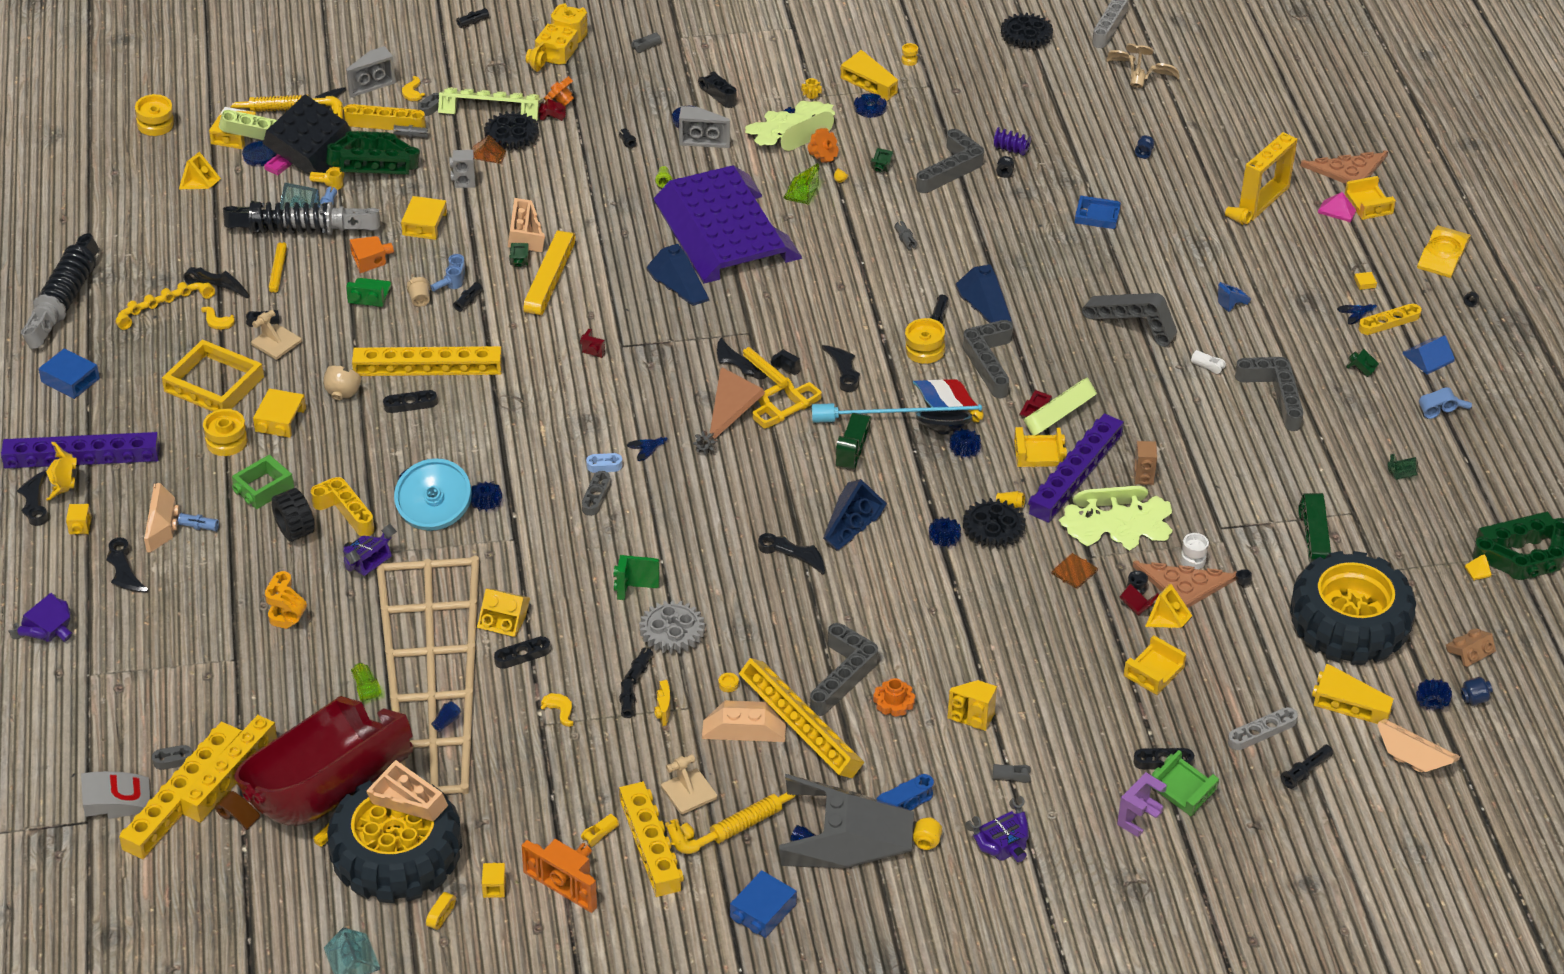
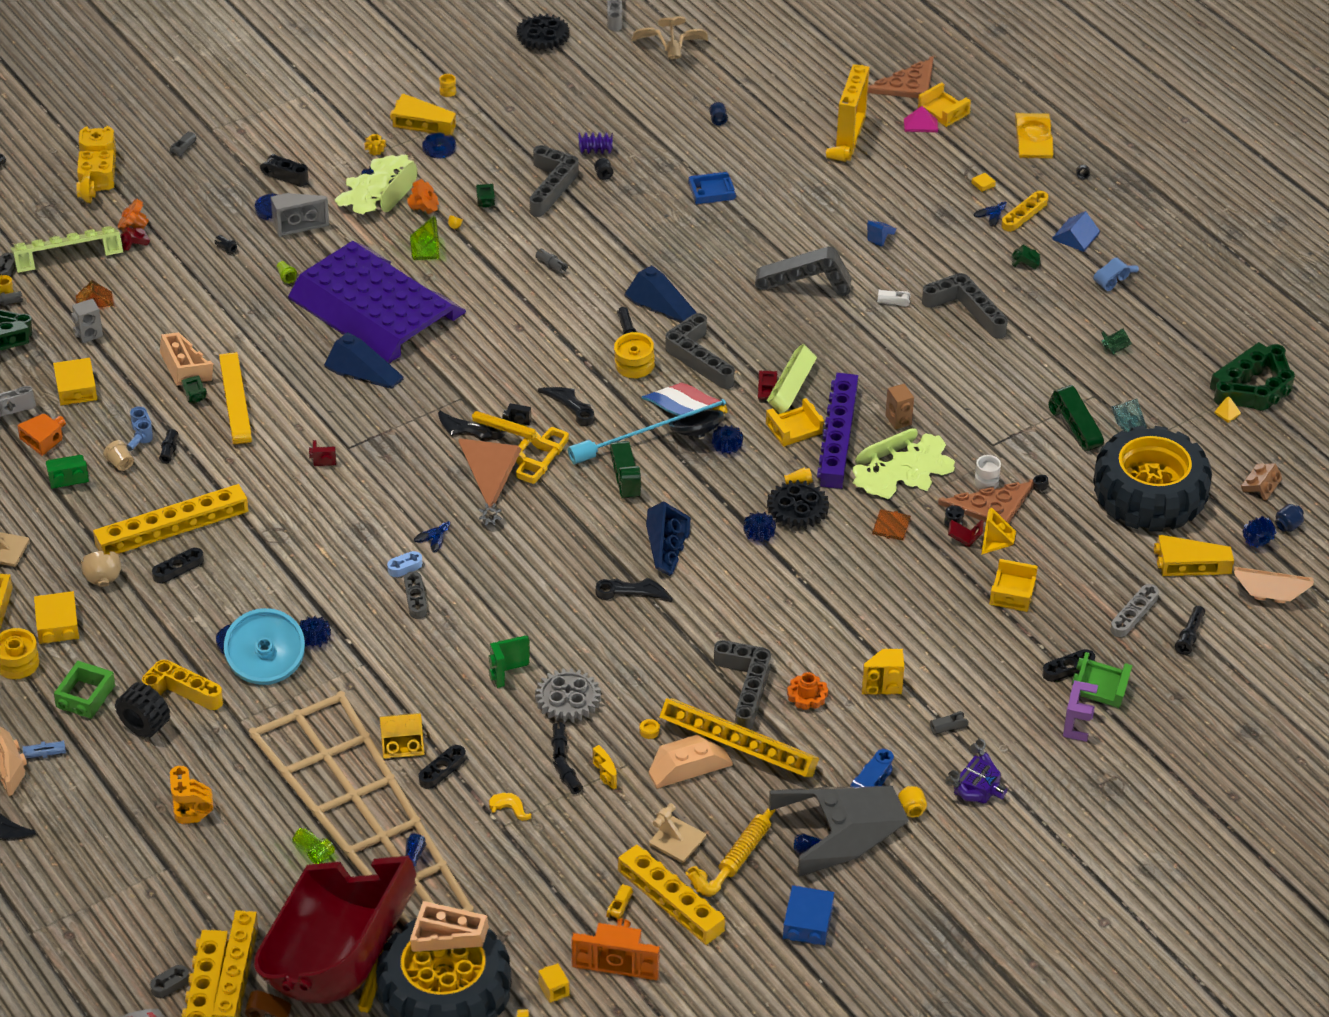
camera: 25 degrees left, 0 degrees up
(368, 552) = (236, 722): dark purple torso -> none
(512, 130) = (106, 268): black gear -> none
(1371, 541) = (1128, 415): none -> clear light blue slope

